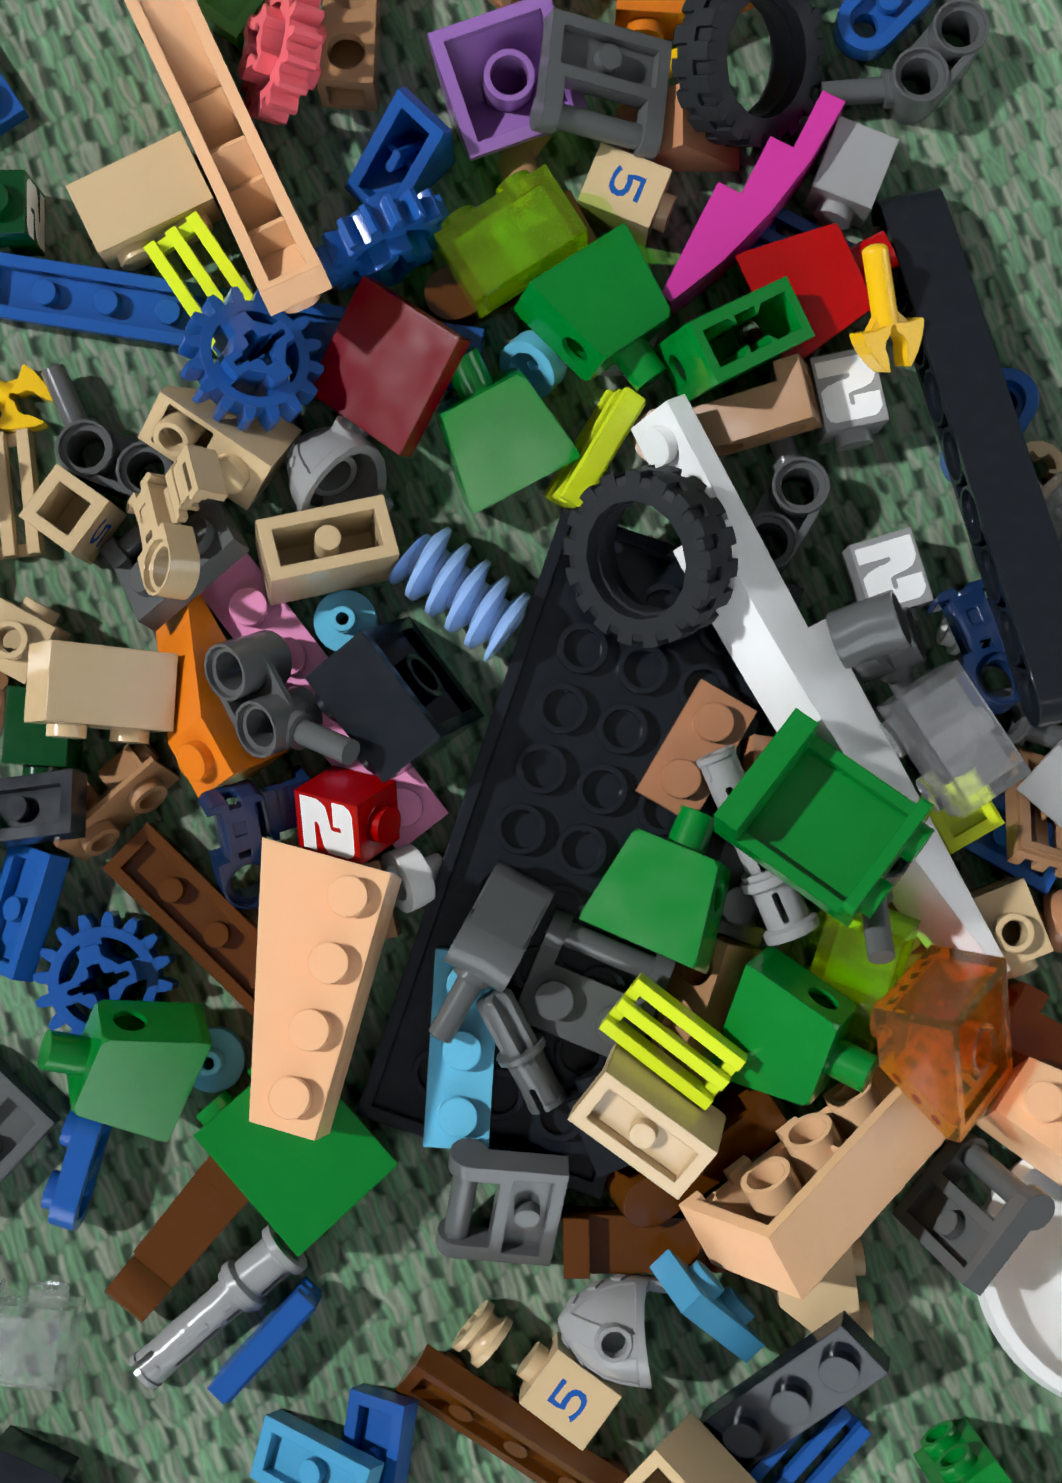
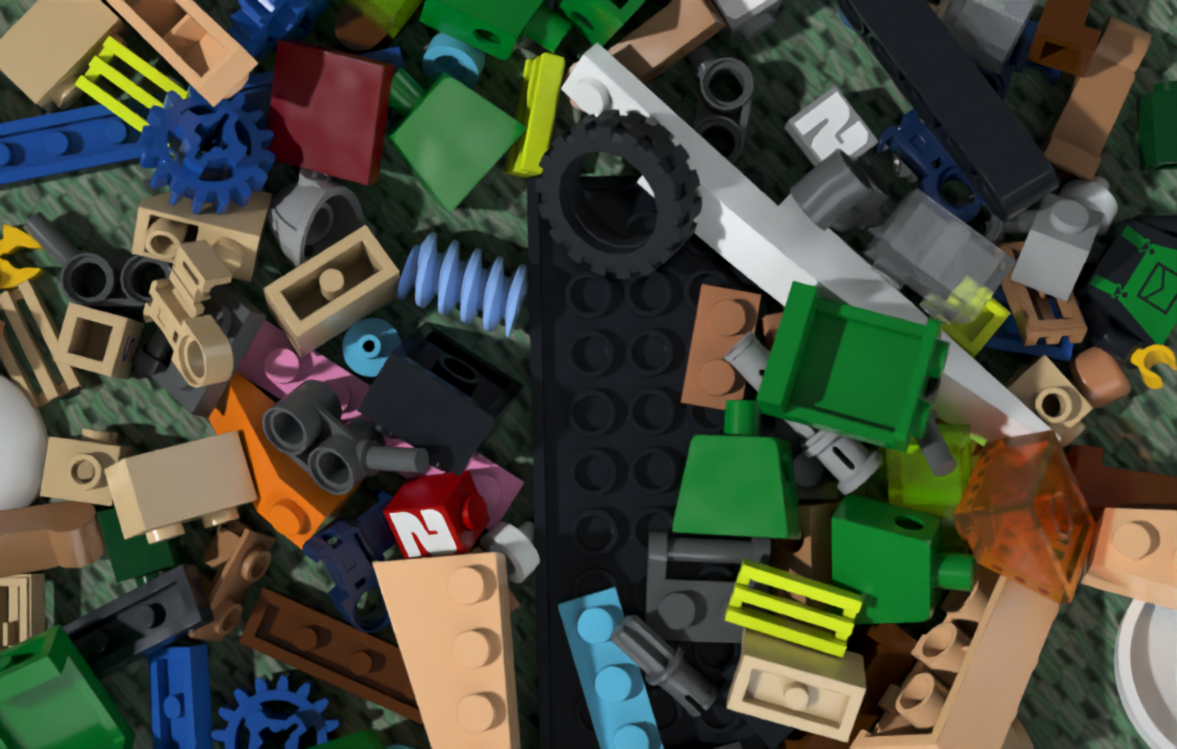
camera: 25 degrees left, 0 degrees up
(491, 942) = (604, 580): dark grey beam -> none
(958, 1227) = (1096, 677): dark grey plate -> none

